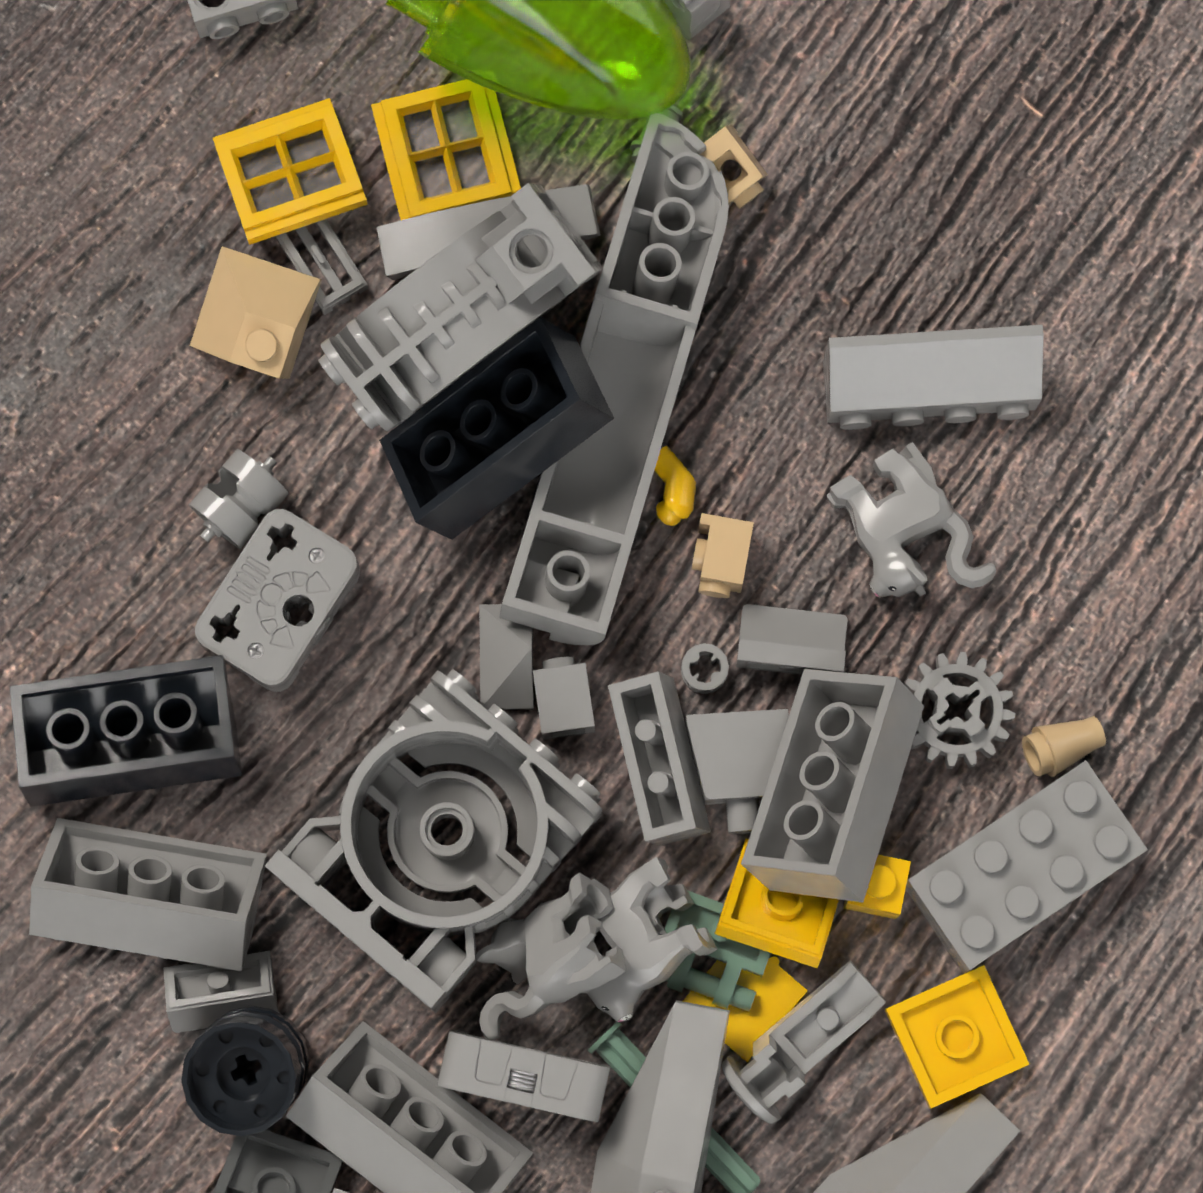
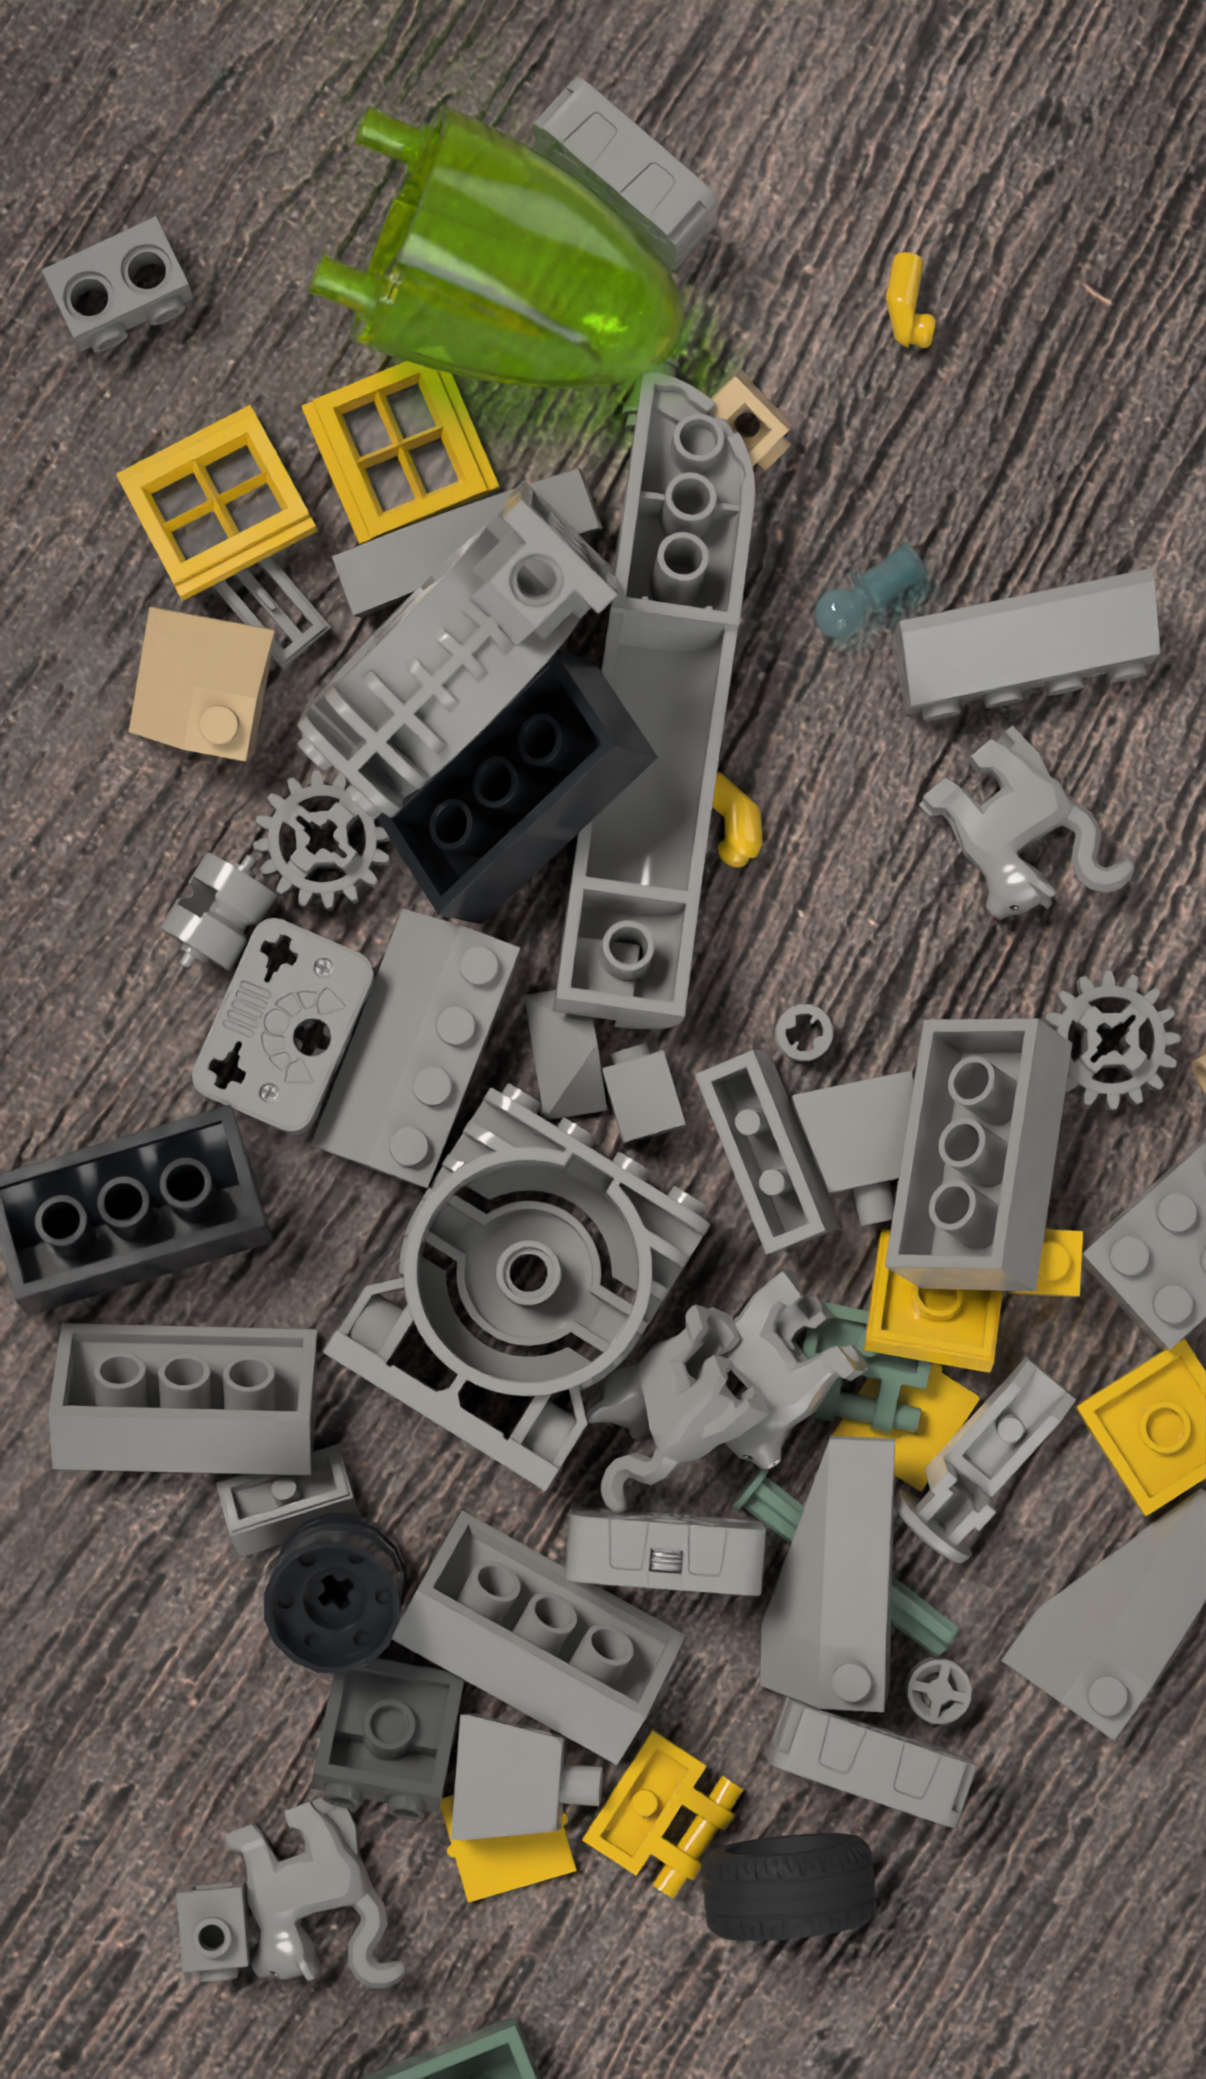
camera: 15 degrees left, 5 degrees up
(316, 470) = (305, 864): none -> light grey gear
(385, 634) = (417, 1048): none -> light grey slope
(722, 555) = (806, 895): tan brick -> none
(786, 330) = (842, 611): none -> clear light blue pin
(791, 640) = (902, 984): light grey panel -> none
(871, 88) = (902, 301): none -> yellow arm

